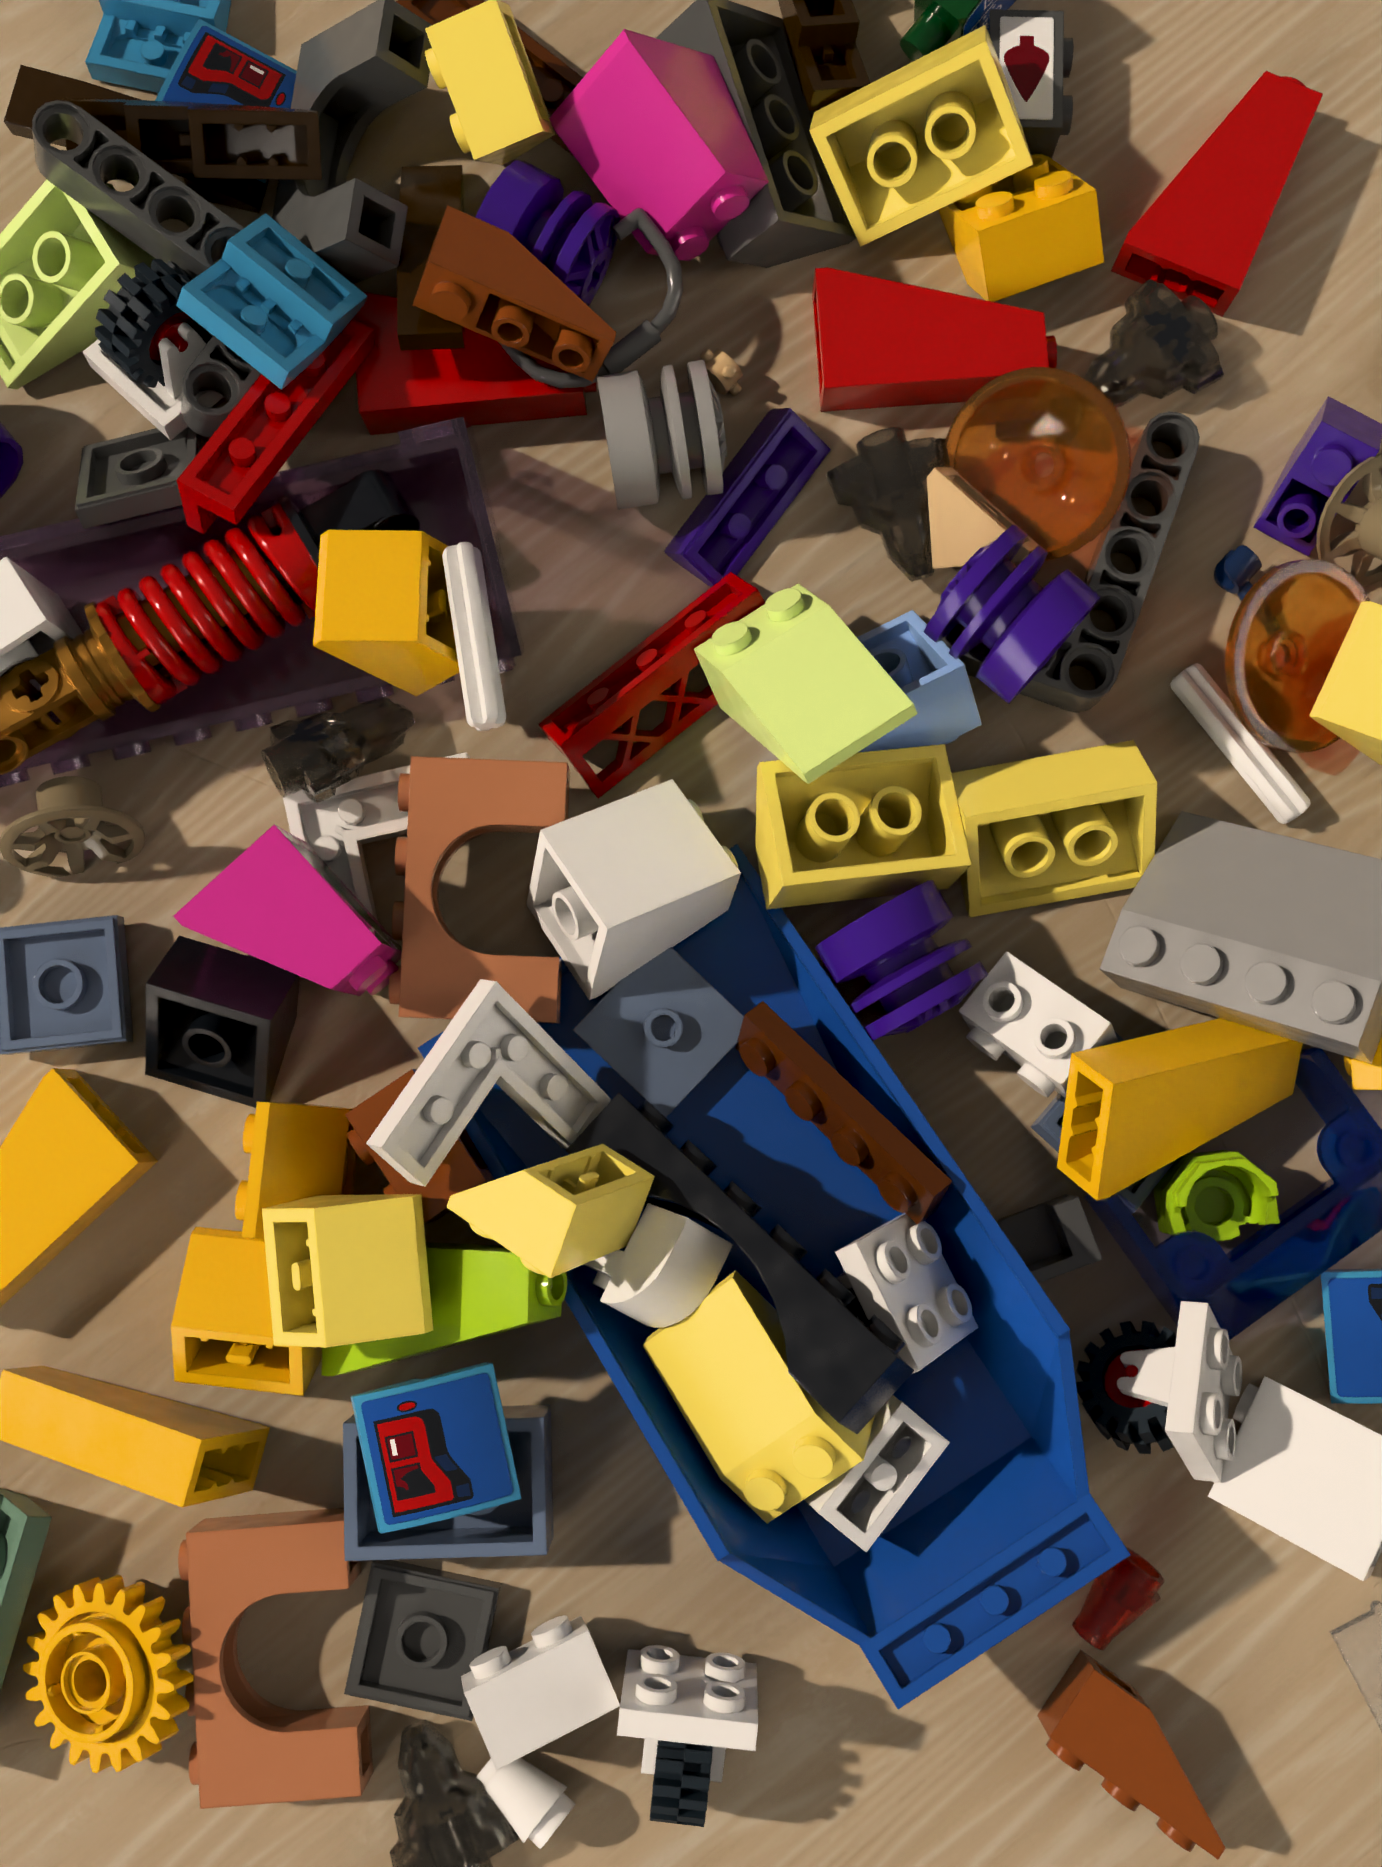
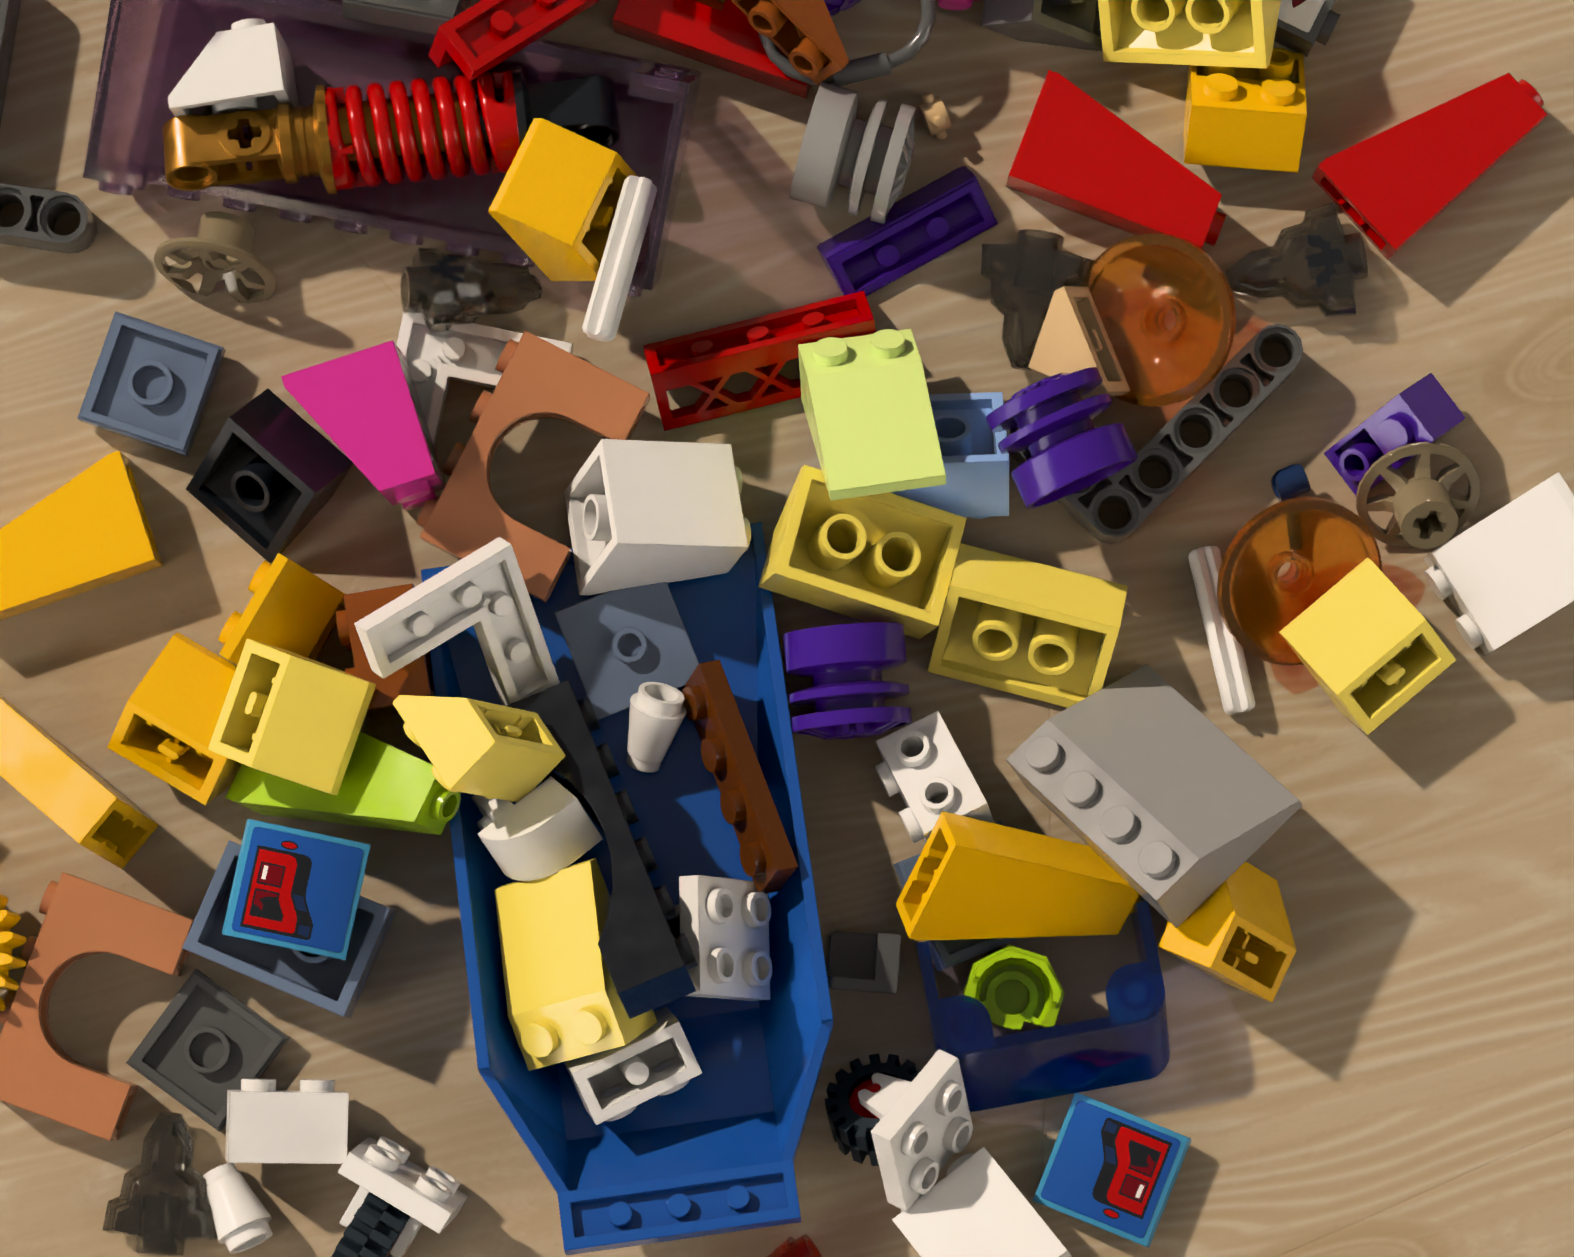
camera: 20 degrees right, 0 degrees up
(725, 1096) = (653, 723): none -> white cone

